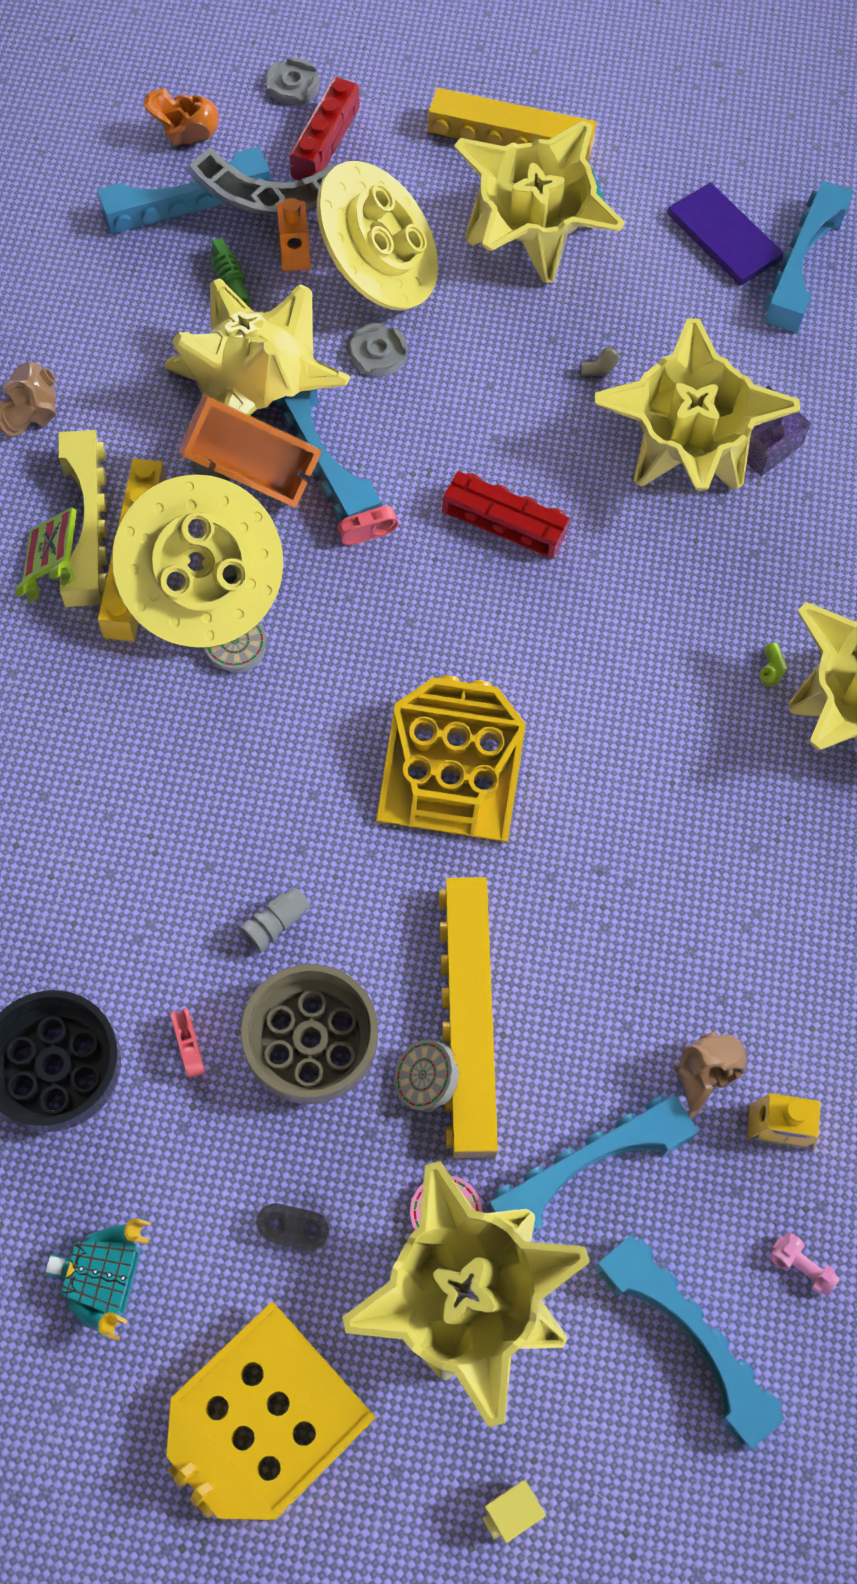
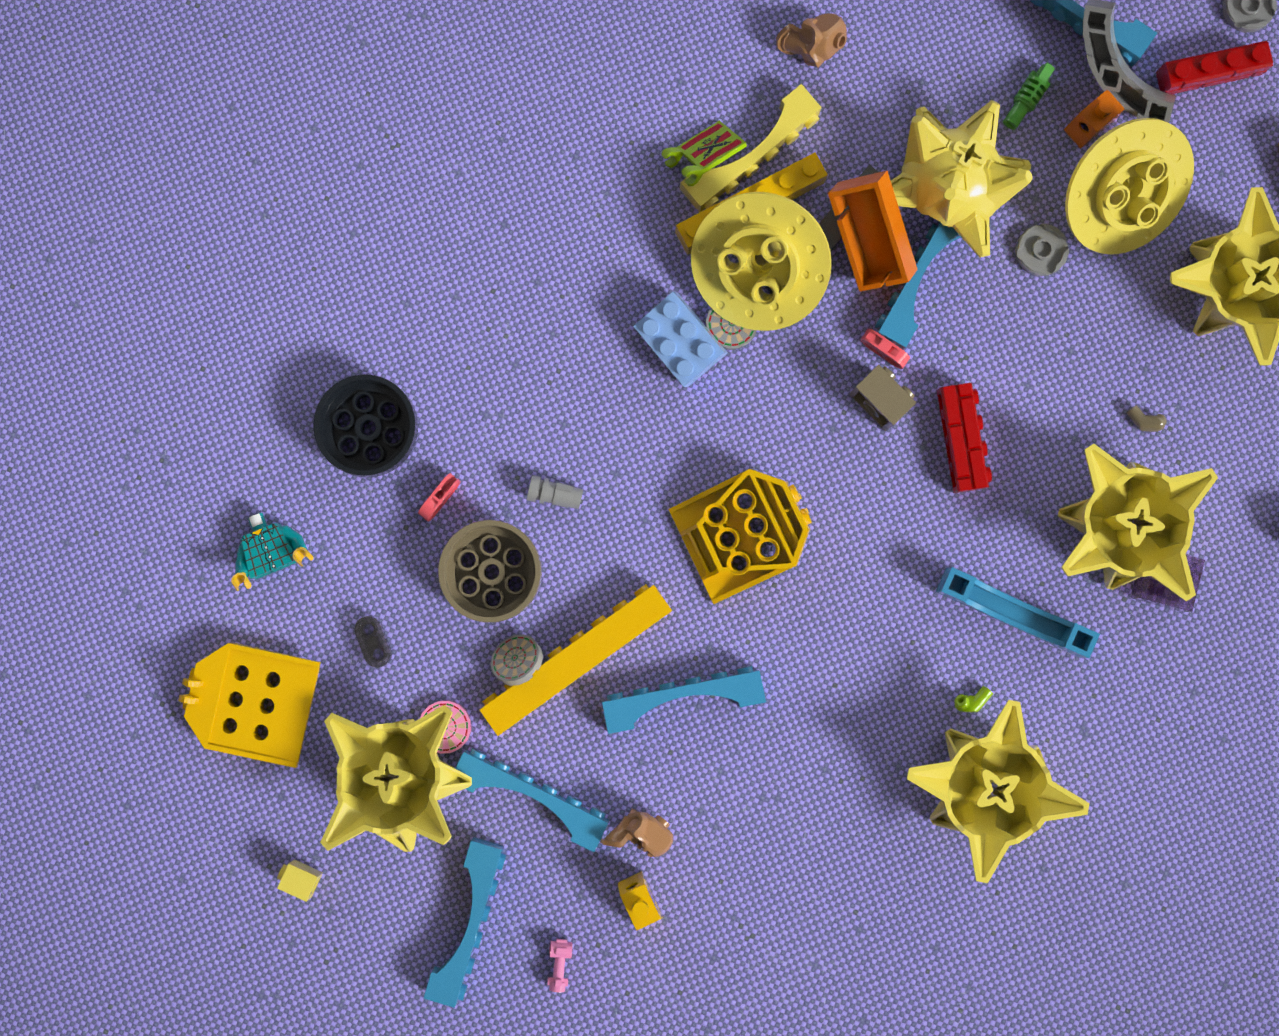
camera: 60 degrees right, 20 degrees up
(213, 691) = (680, 339): none -> light blue brick
(415, 550) = (883, 397): none -> dark tan brick
(562, 1001) = (624, 711): none -> dark azure arch
(663, 597) = (1016, 613): none -> dark azure arch

